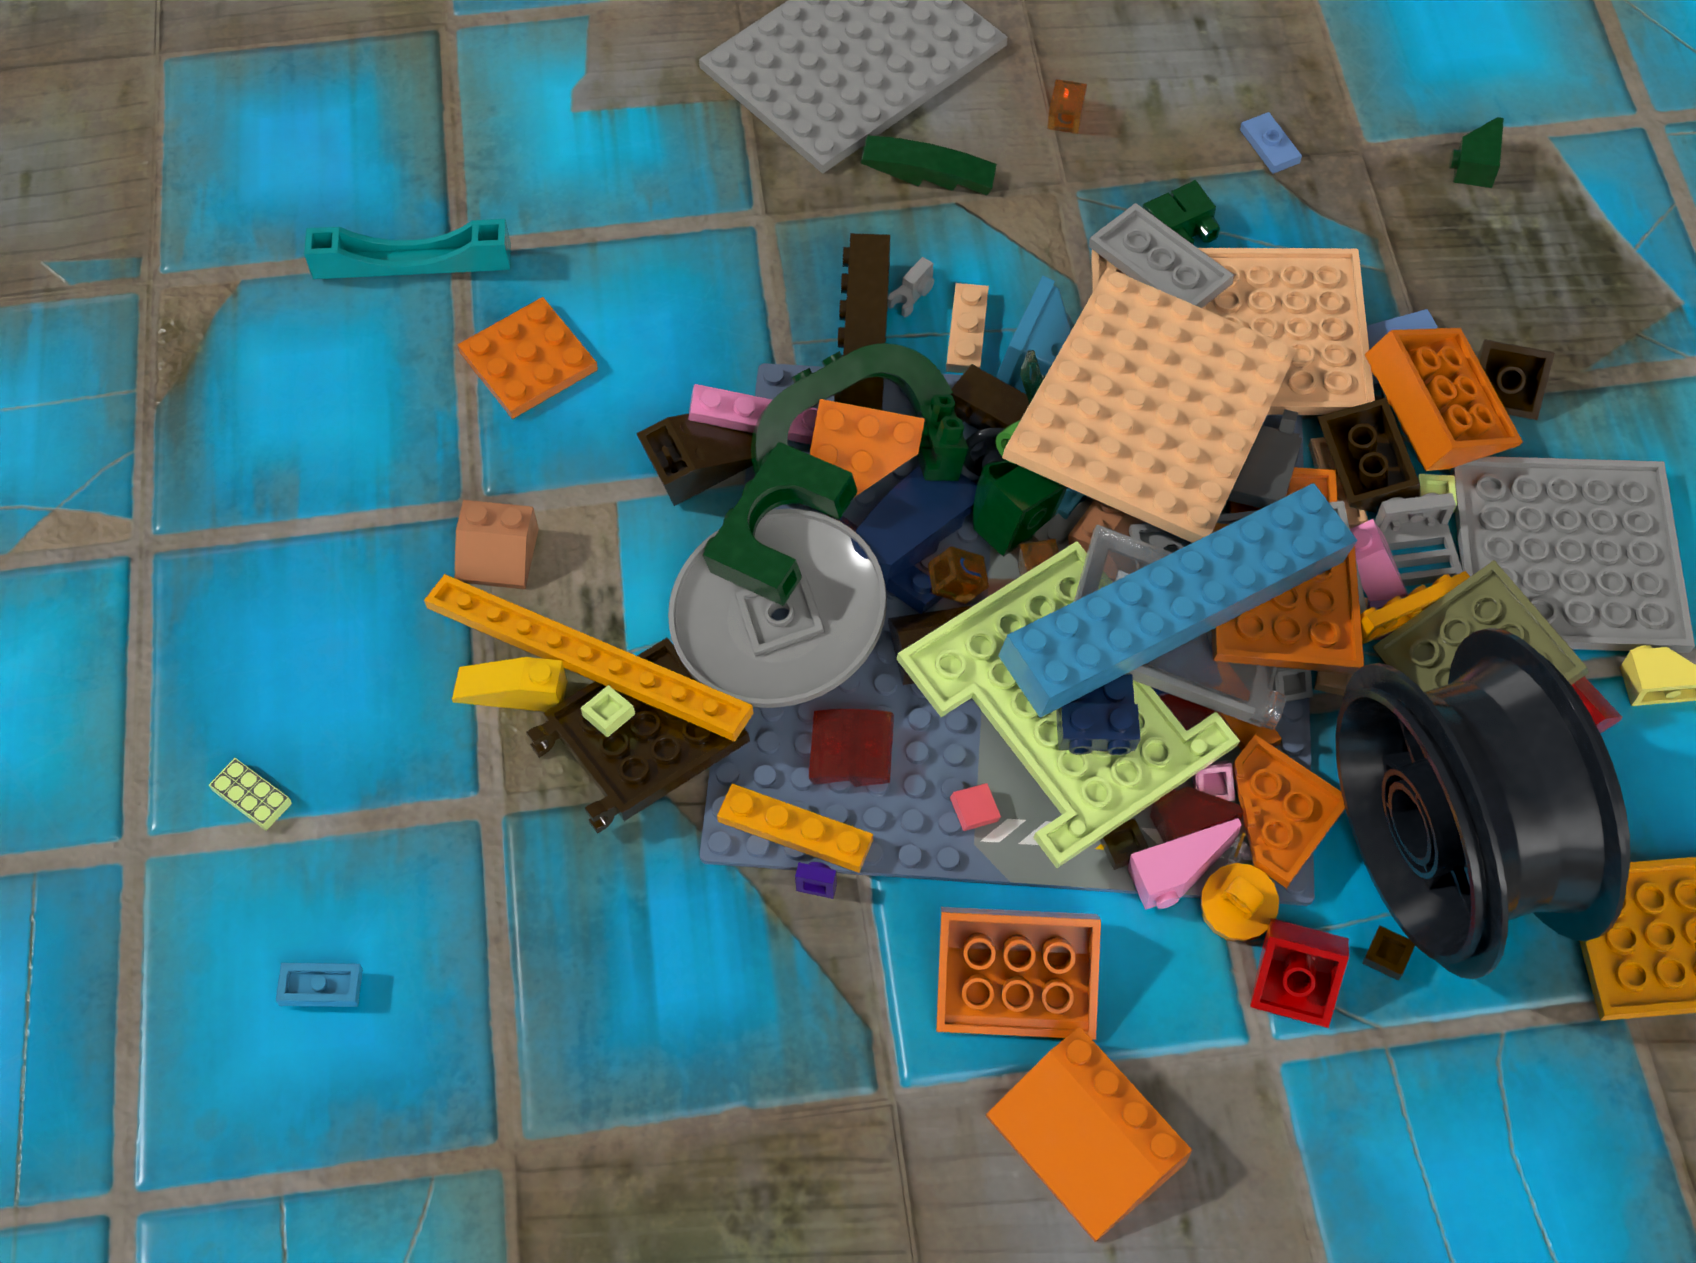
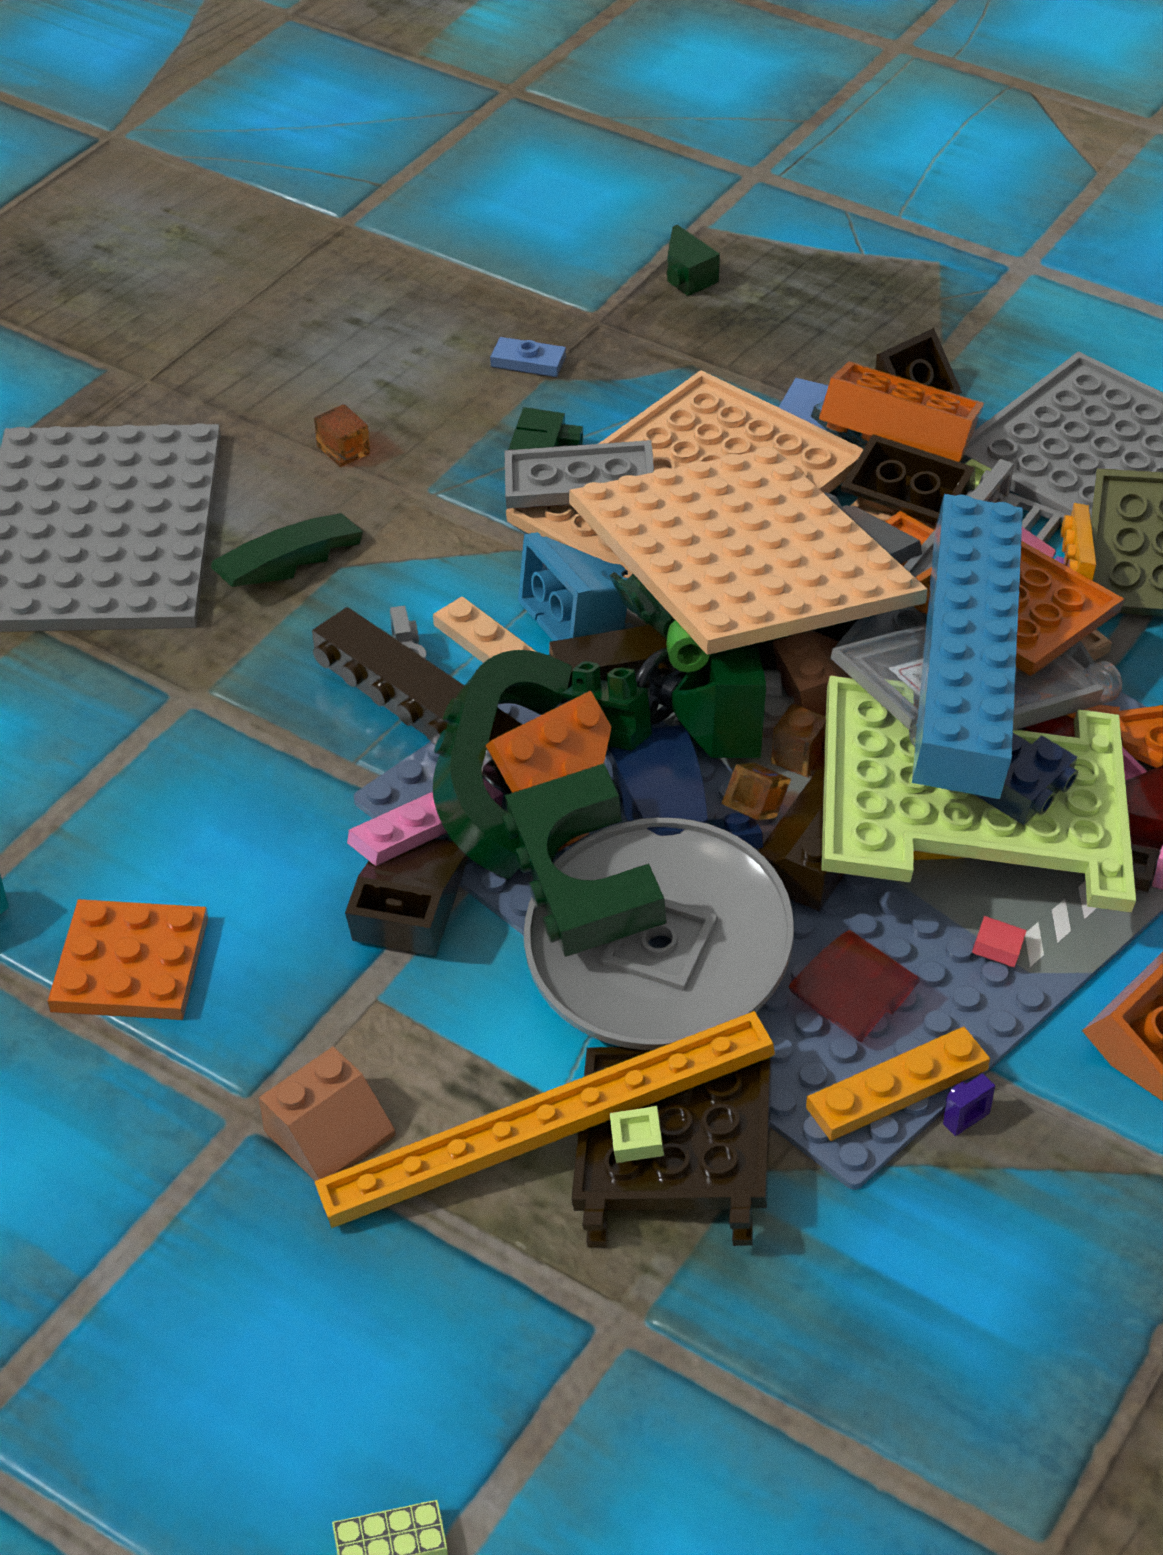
camera: 50 degrees left, 15 degrees down
(512, 683) = (506, 1207): yellow slope -> none

